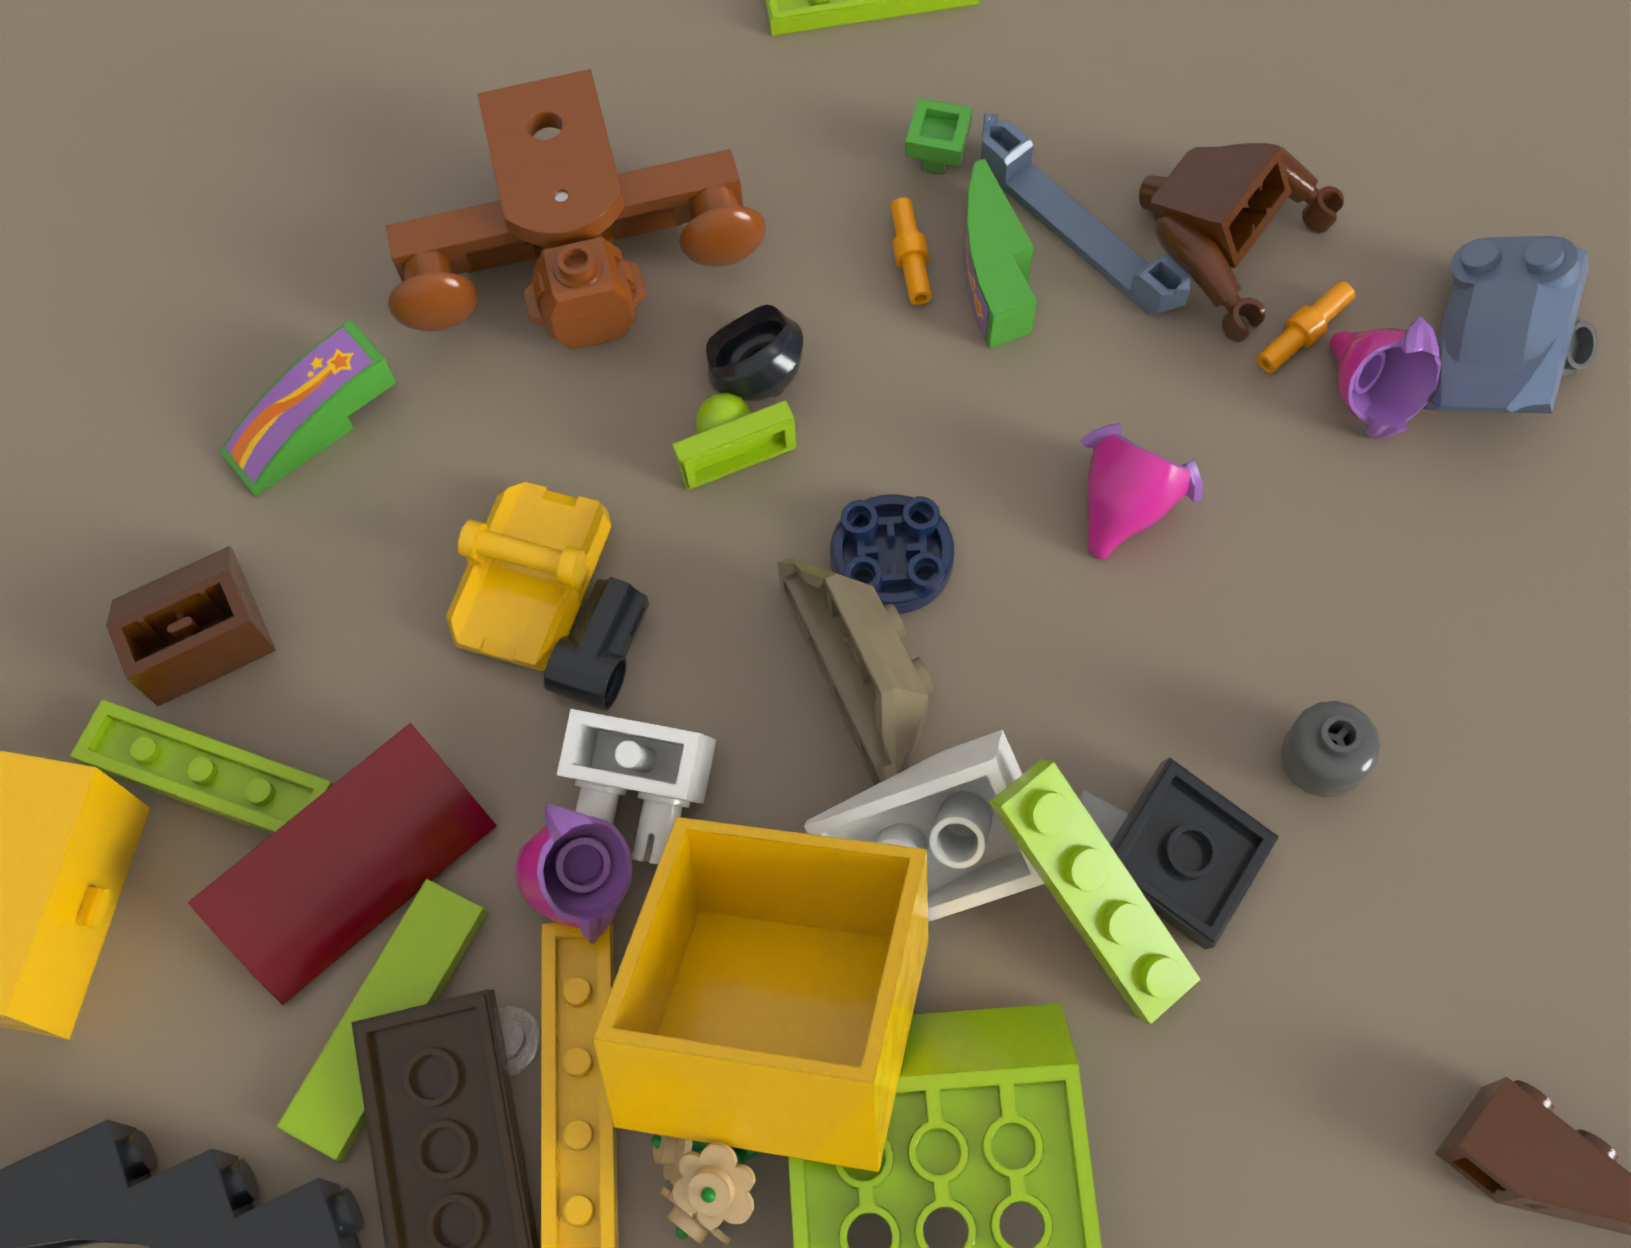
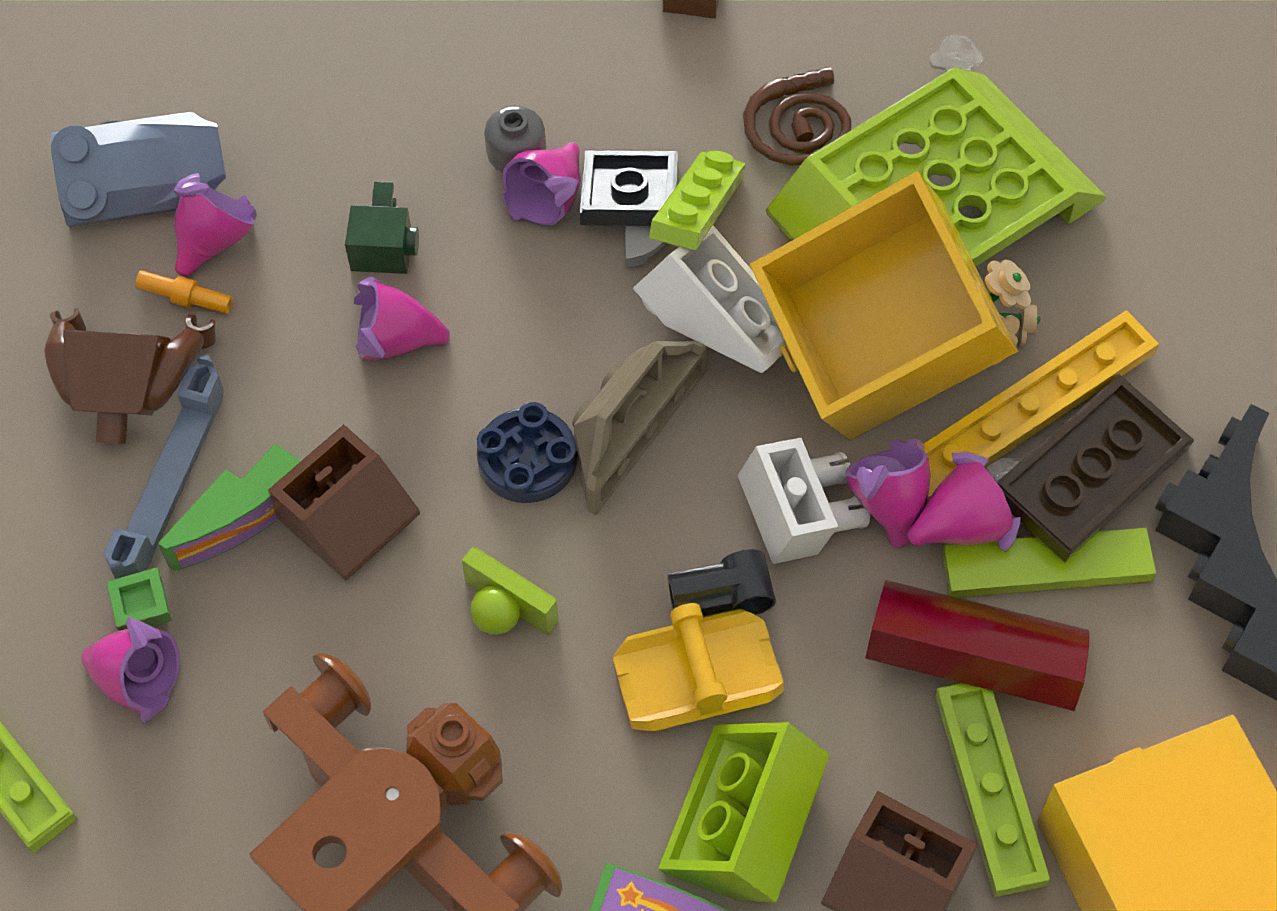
camera: 125 degrees left, 5 degrees down
(356, 527) = (746, 810): none -> lime slope
(485, 937) = (966, 508): none -> dark pink hat
(755, 354) = (423, 622): black hat -> none
(869, 102) = (135, 667): none -> medium lavender hat
(910, 251) = (258, 575): light orange bar -> none
(934, 339) = (343, 502): none -> reddish brown slope
(1171, 1140) = (800, 126): none -> reddish brown piece
(1246, 755) = (542, 184): none -> medium lavender hat
(1271, 537) = (380, 234): none -> dark green brick

